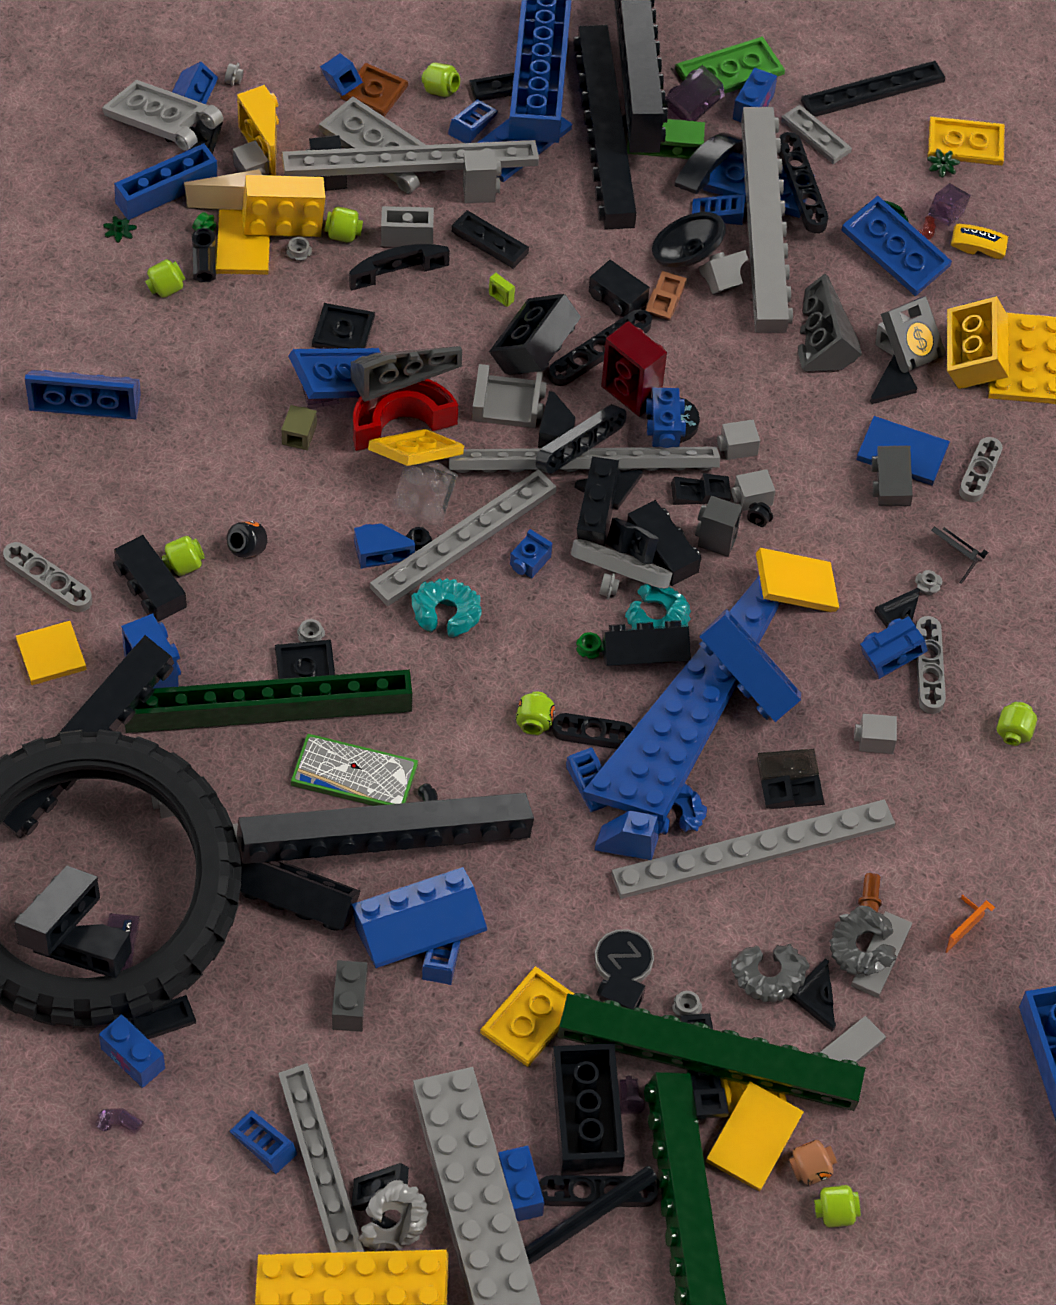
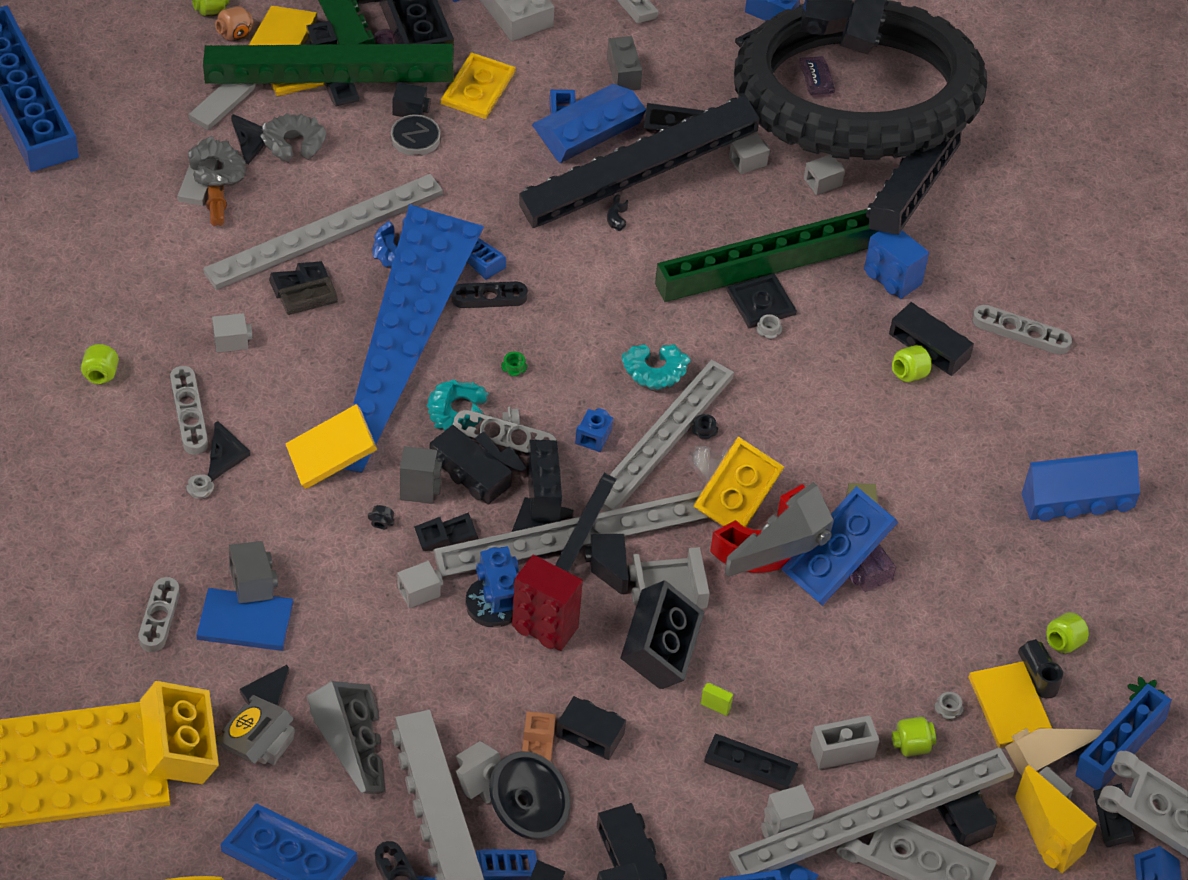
camera: 165 degrees right, 5 degrees down
(51, 652) = (984, 270): yellow tile -> none
(204, 221) = (1060, 710): green plate -> none
(247, 539) = (861, 384): black head -> none
(283, 205) = (984, 720): yellow brick -> none
(343, 327) = (864, 627): black tile -> none
(353, 772) = (683, 226): tile -> none
(381, 545) = (738, 407): blue slope -> none
(398, 258) = (805, 719): black slope -> none
(535, 713) = (545, 293): lime head -> none
(589, 353) = (584, 675): black beam -> none
(630, 835) = (436, 200): blue slope -> none
(646, 643) = (461, 361): black brick -> none
(689, 998) = (355, 109): light grey plate -> none
(750, 666) = (358, 343): blue slope -> none
(753, 488) = (393, 534): light grey brick -> none
(893, 646) = (226, 403): blue brick -> none
(965, 927) = (127, 194): orange piece -> none
(972, 555) = (175, 522): black piece -> none

